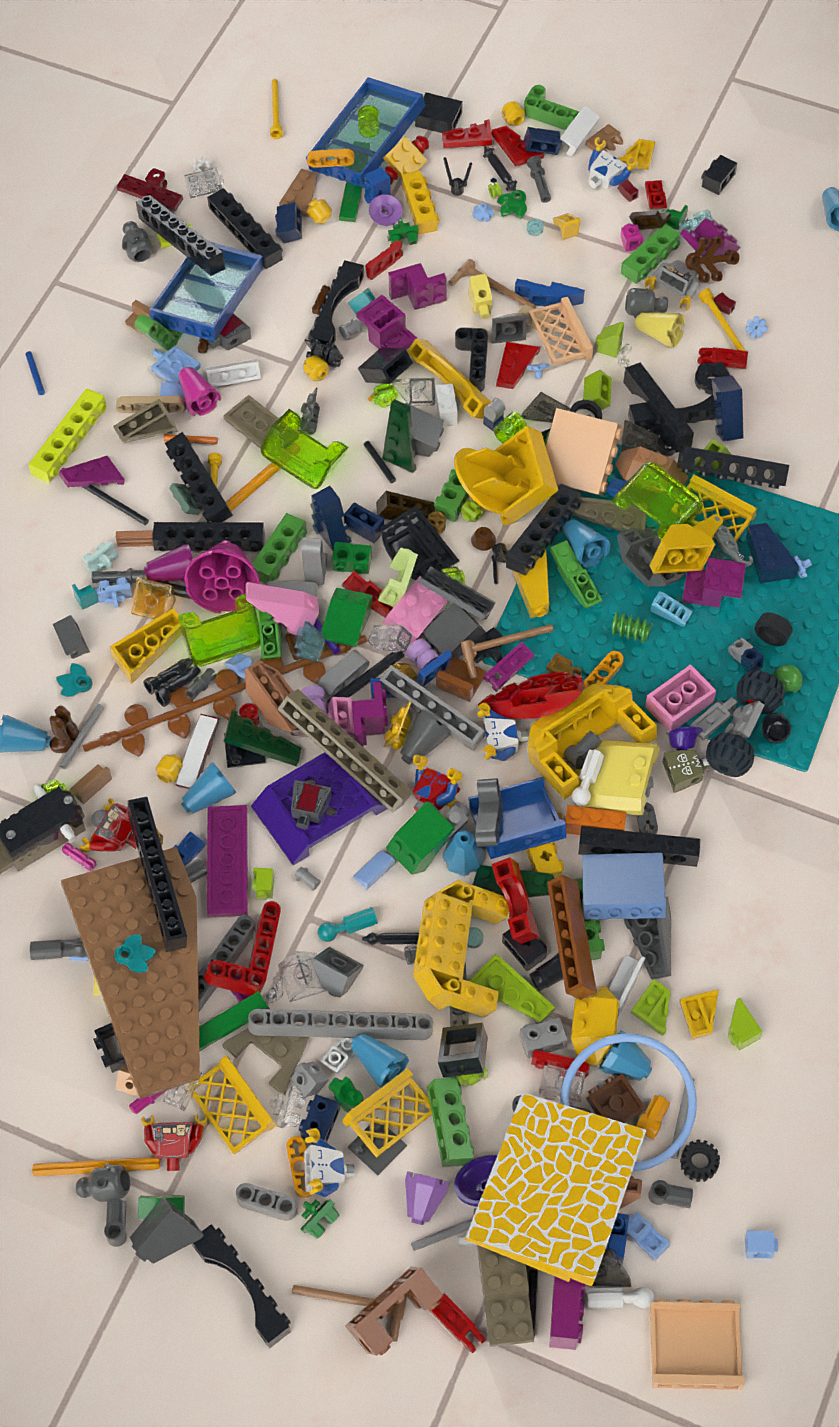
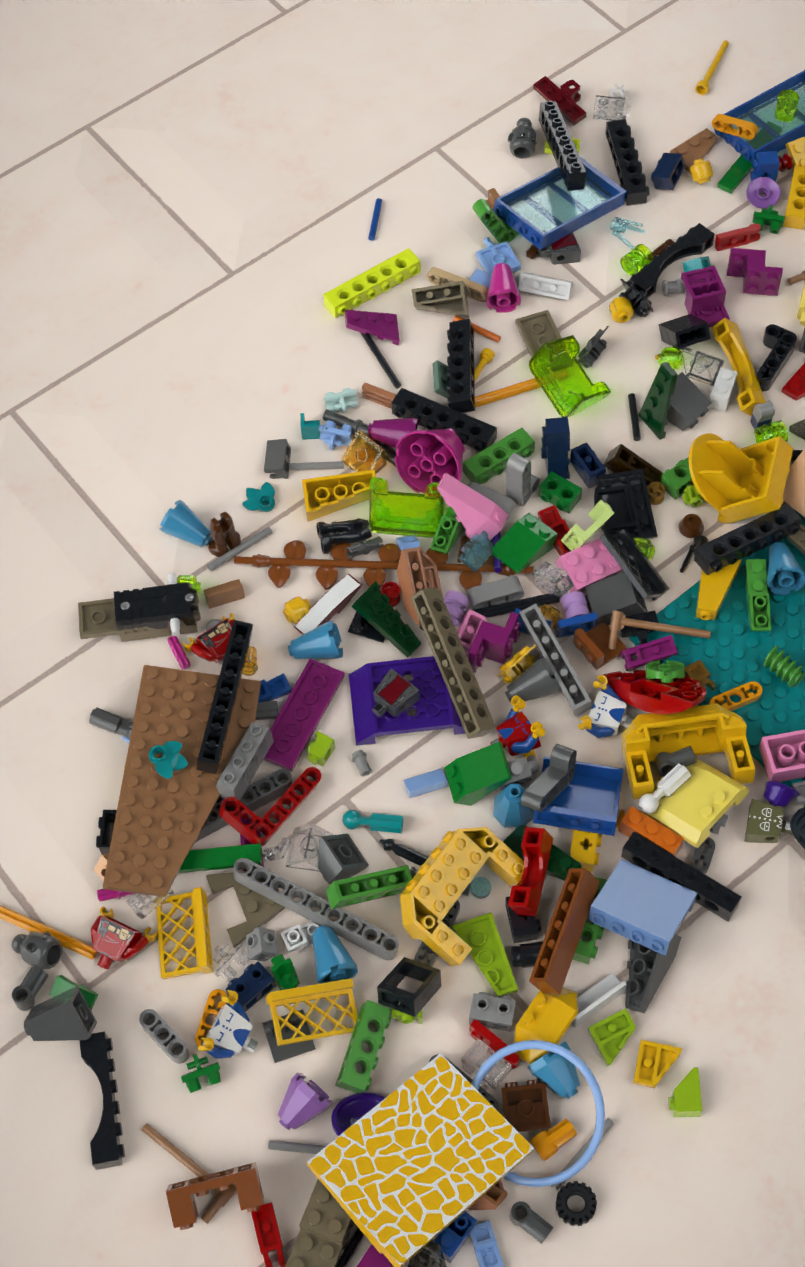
camera: 30 degrees right, 0 degrees up
(111, 628) = (316, 465): none -> light grey bar
(204, 925) = (245, 761): none -> light grey brick
(270, 290) = (620, 225): none -> clear light blue plant
(304, 316) = (636, 259): none -> clear neon green wheel
(379, 981) = (368, 887): none -> bright green brick
(534, 675) = (665, 671): none -> bright green plate

